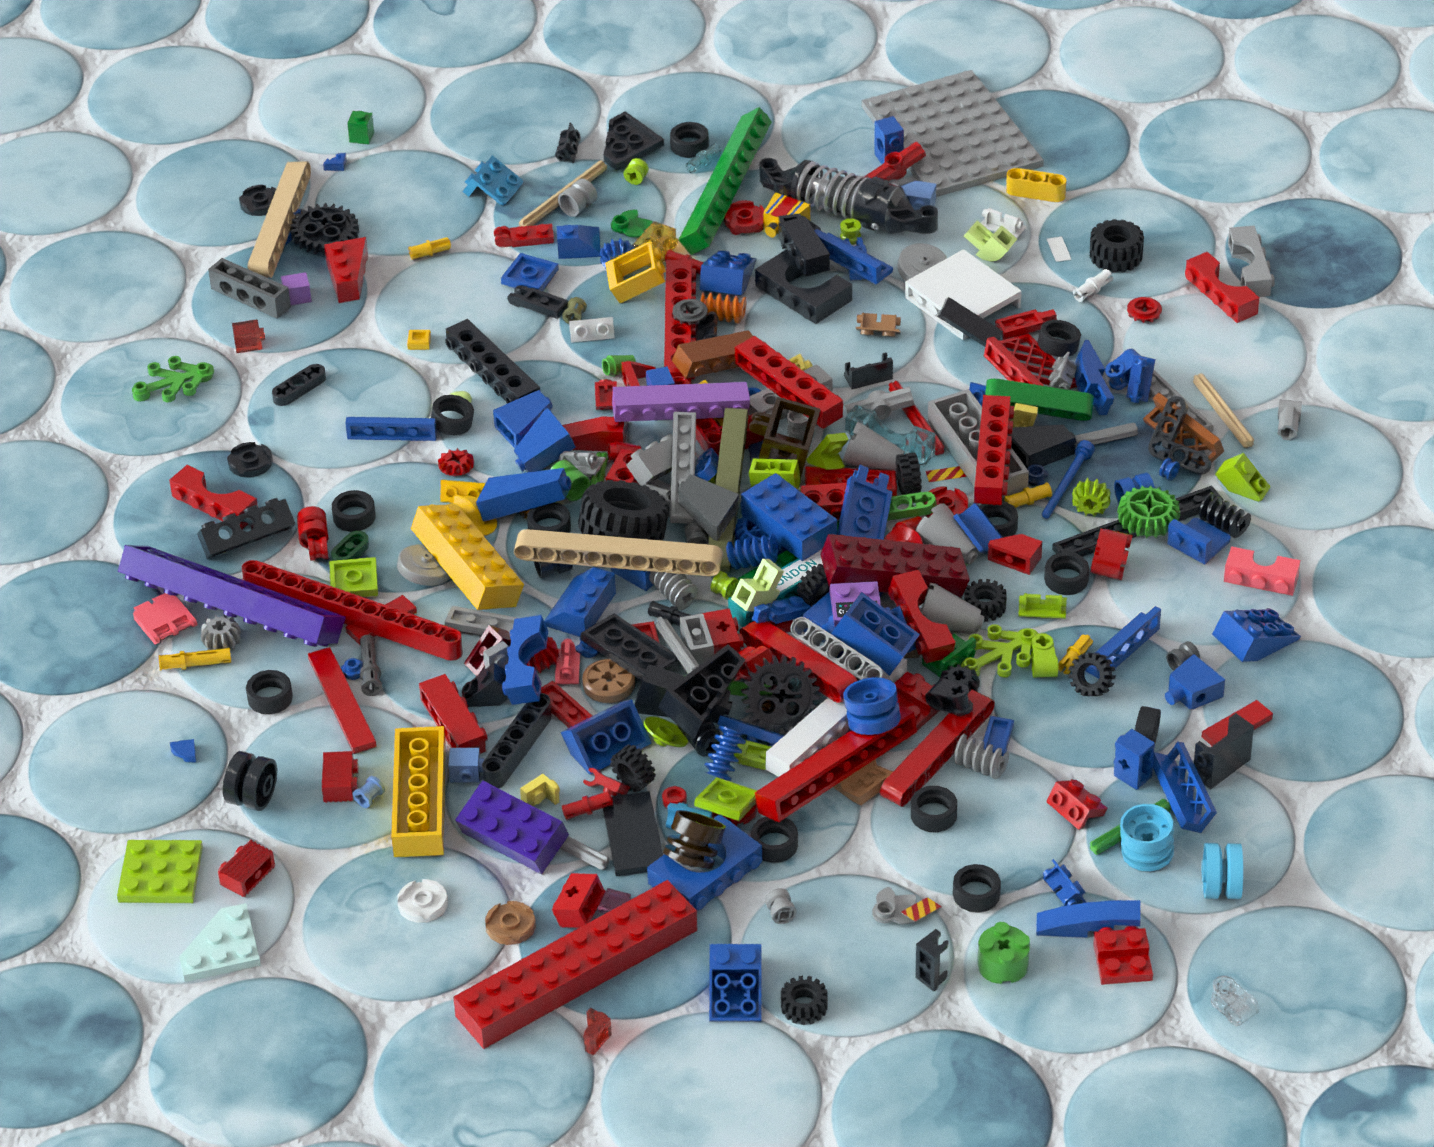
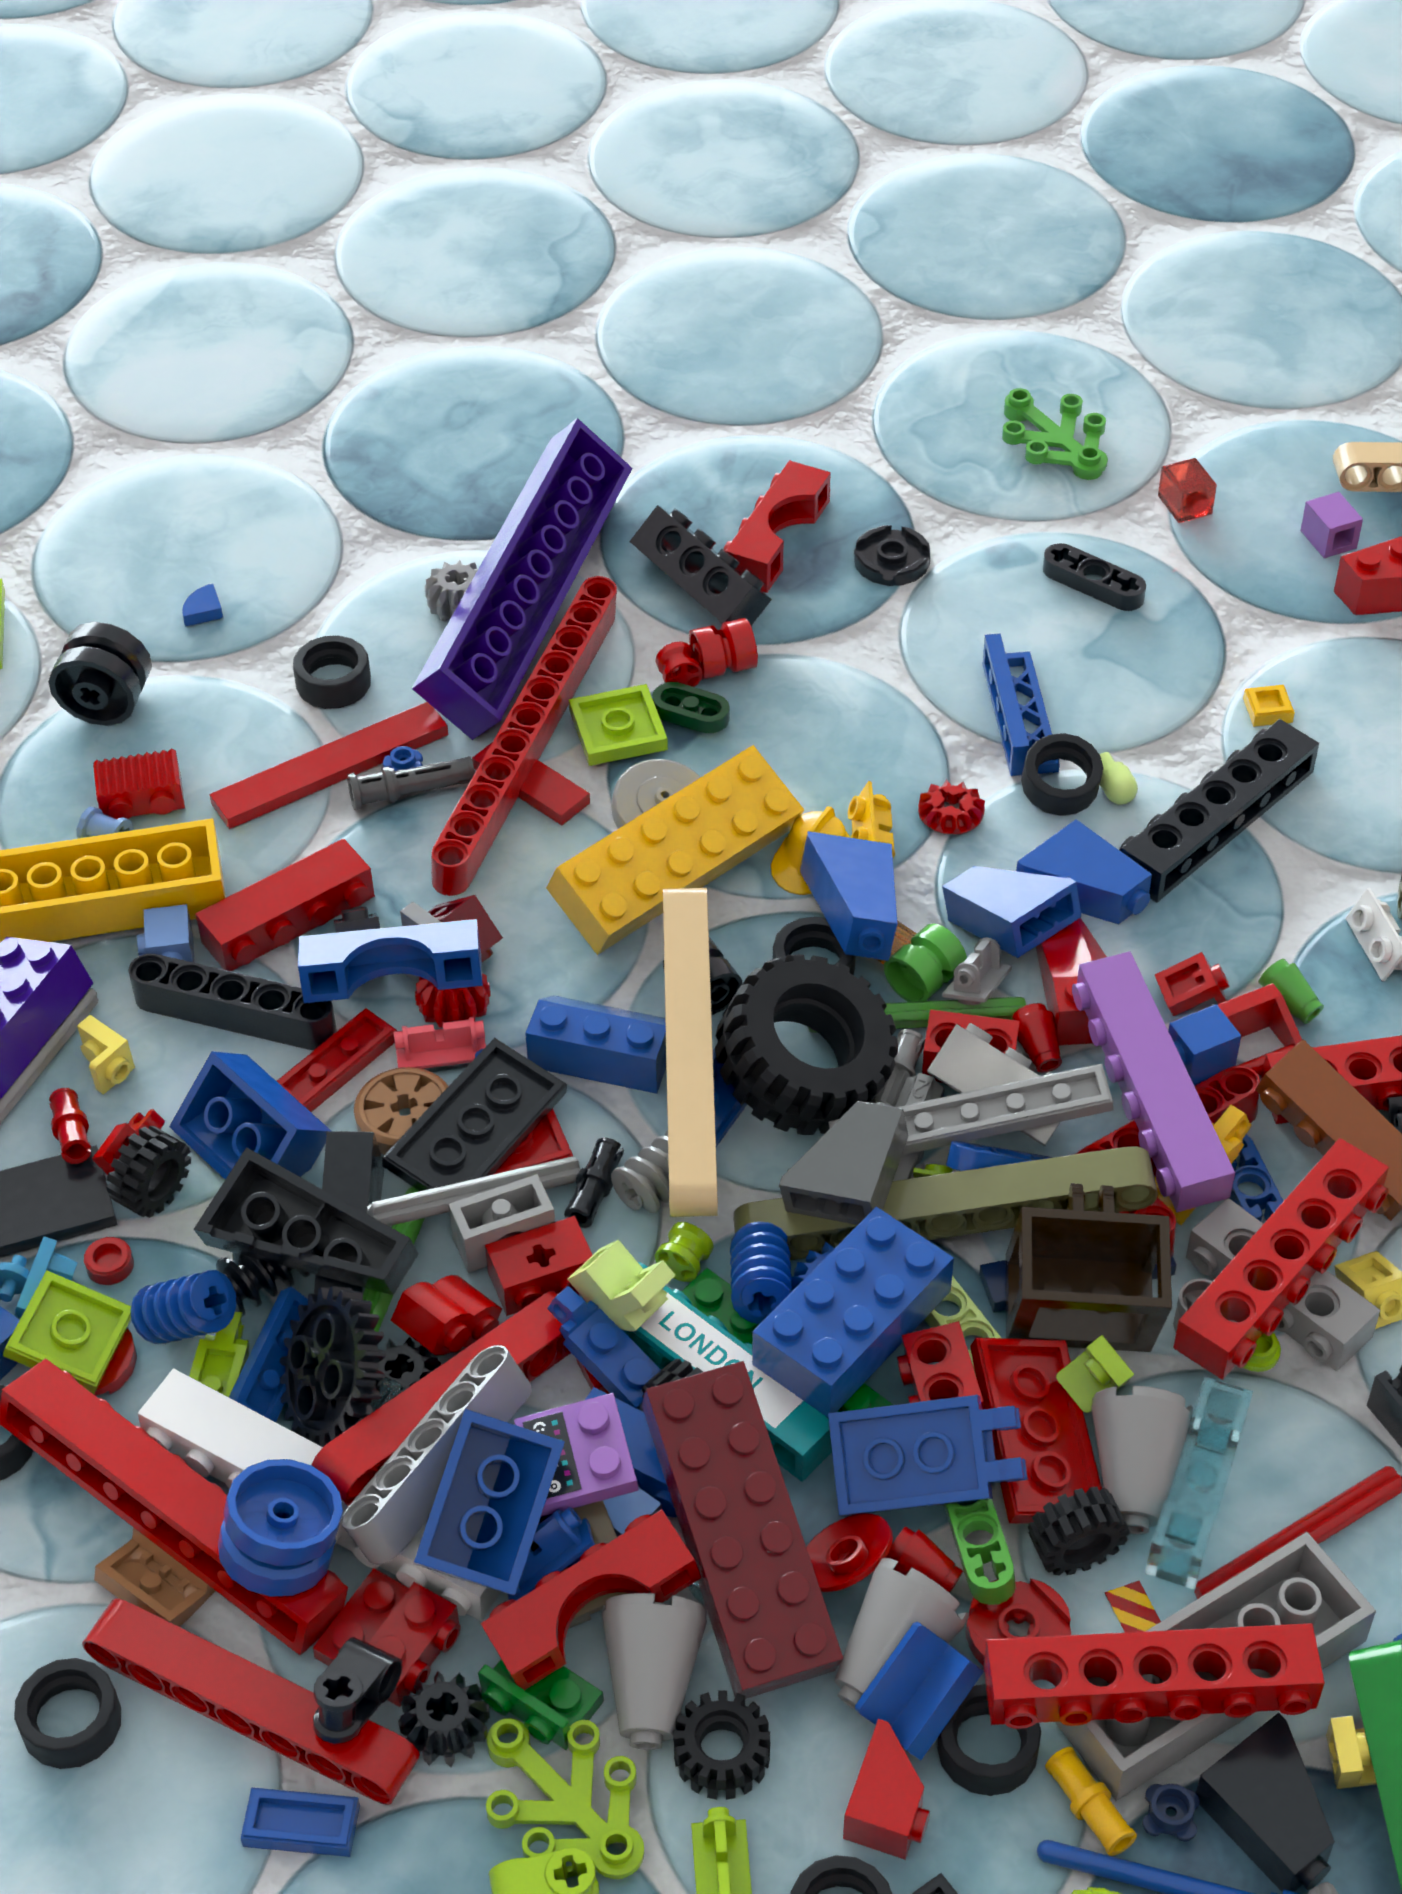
camera: 80 degrees right, 5 degrees up
(163, 617) = (477, 520): coral plate -> none
(190, 659) = (392, 550): yellow pin -> none
(249, 288) = (1300, 465): dark grey brick -> none
(353, 499) = (786, 674): black tyre -> none
(476, 621) = (526, 927): light grey plate -> none
(764, 468) = (987, 1276): lime brick -> none
(885, 402) = (1299, 1452): light grey piece -> none
(979, 758) = (210, 1782): light grey piece -> none

